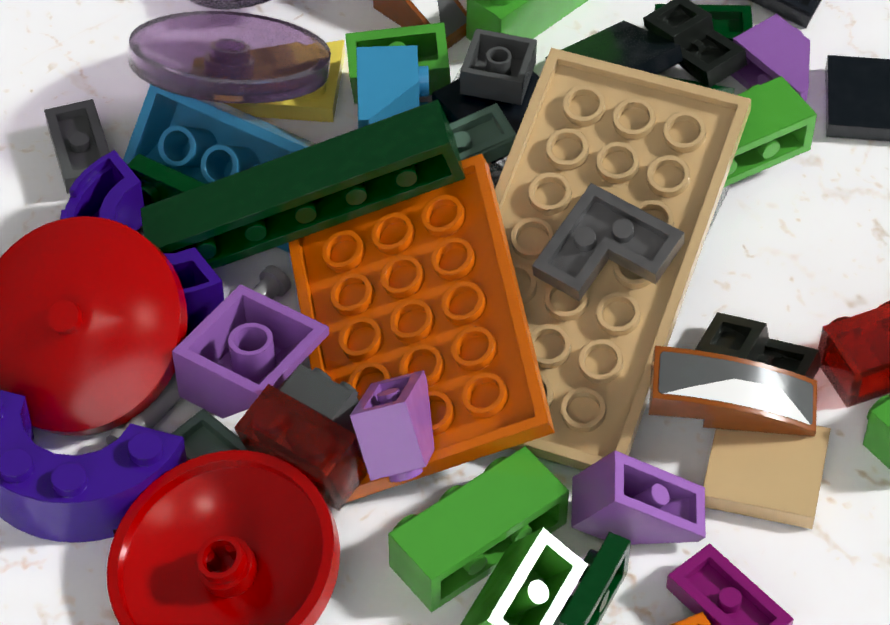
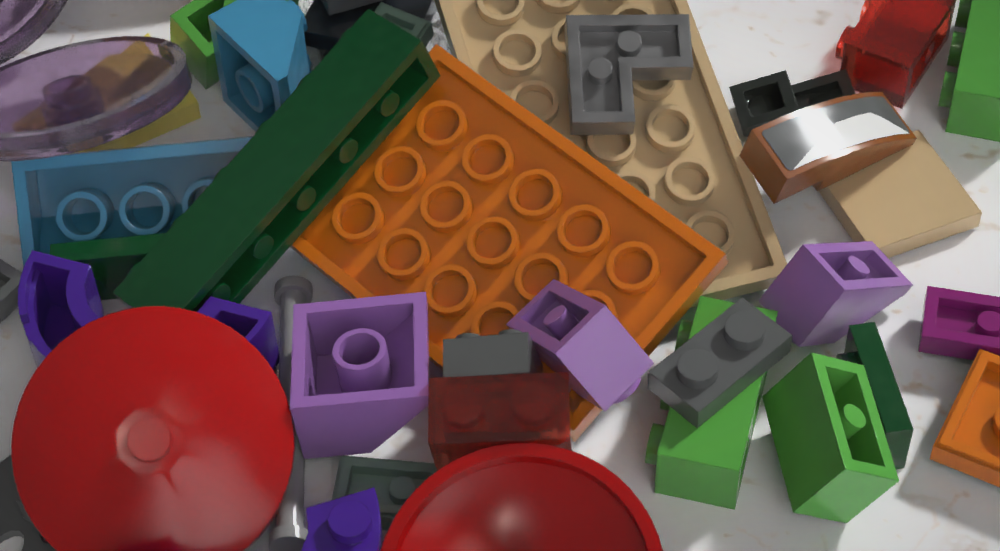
camera: 35 degrees left, 0 degrees up
(487, 498) = (719, 362): none -> dark grey plate

